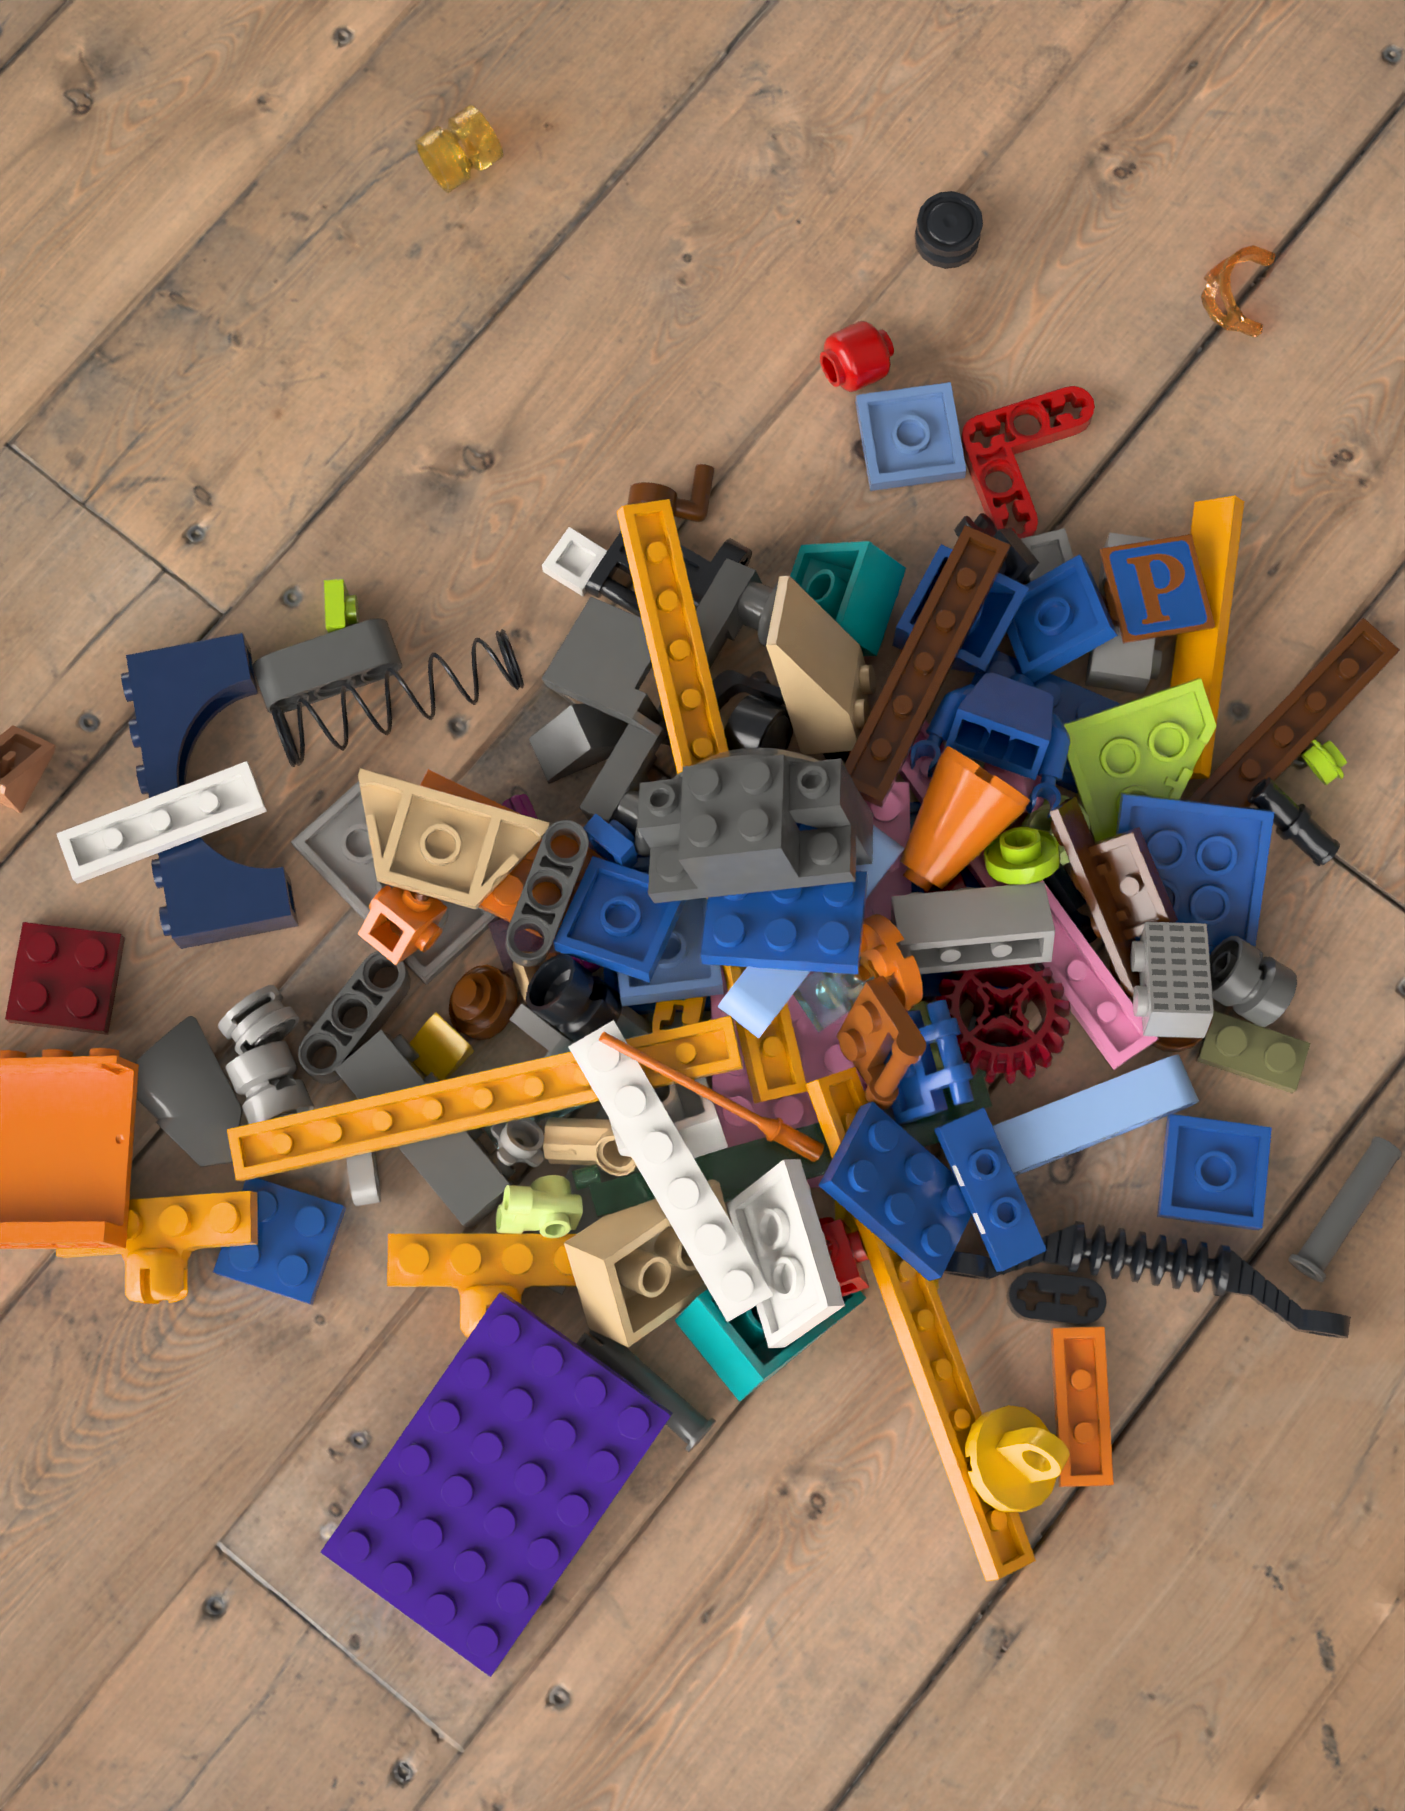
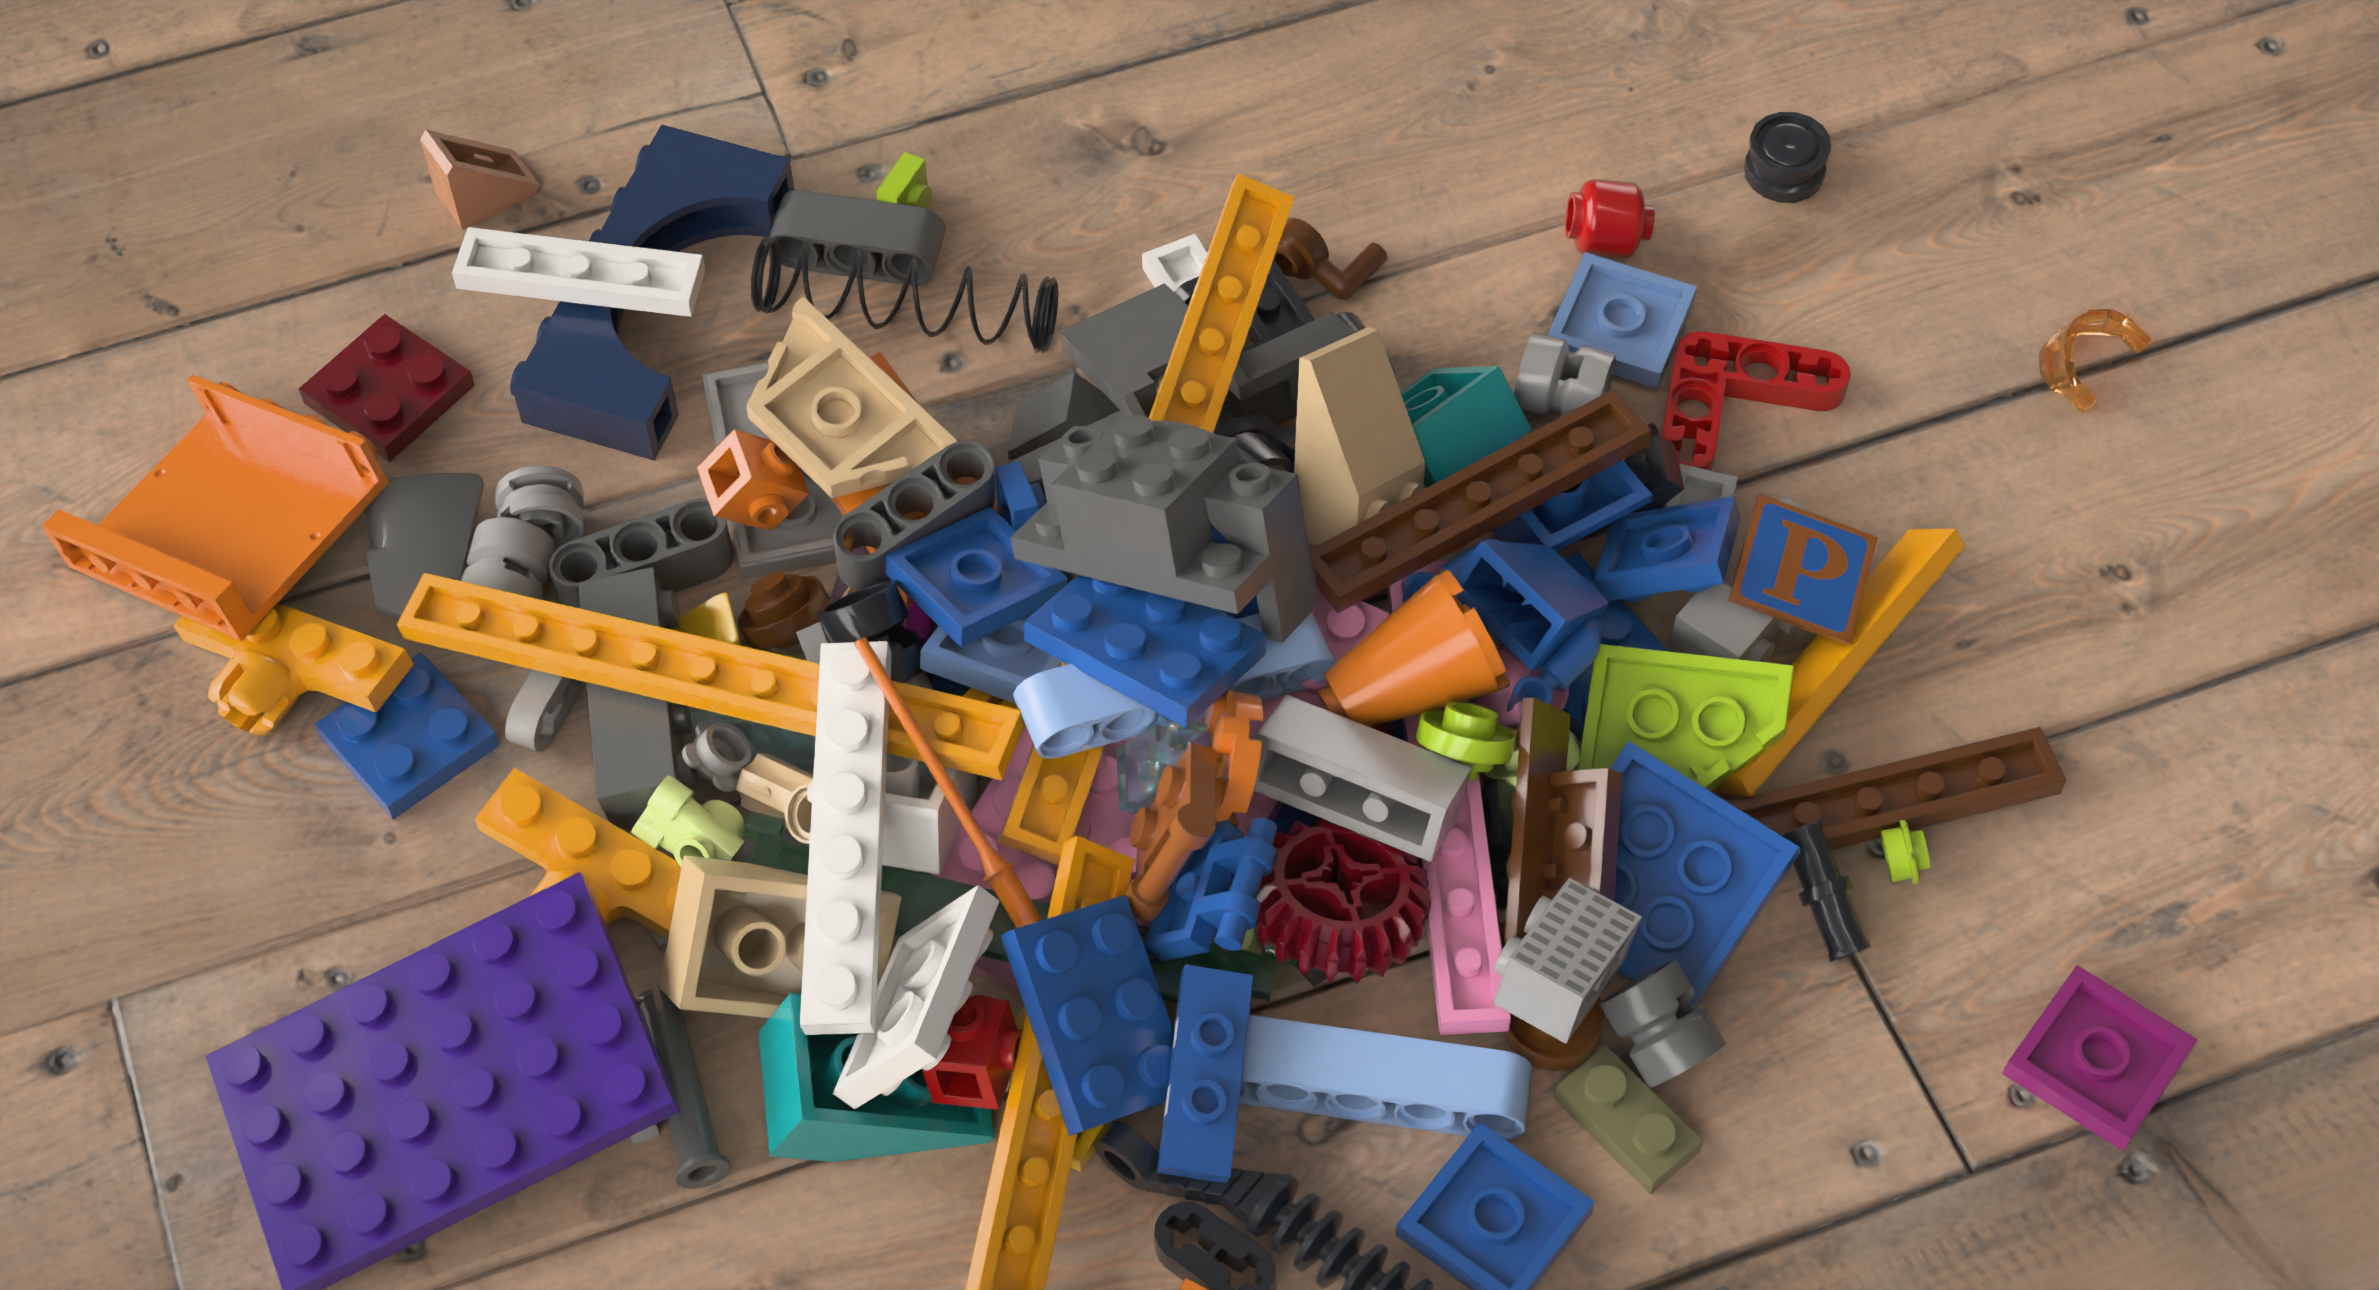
camera: 30 degrees right, 20 degrees down
(888, 516) = (1561, 378): none -> light grey wheel

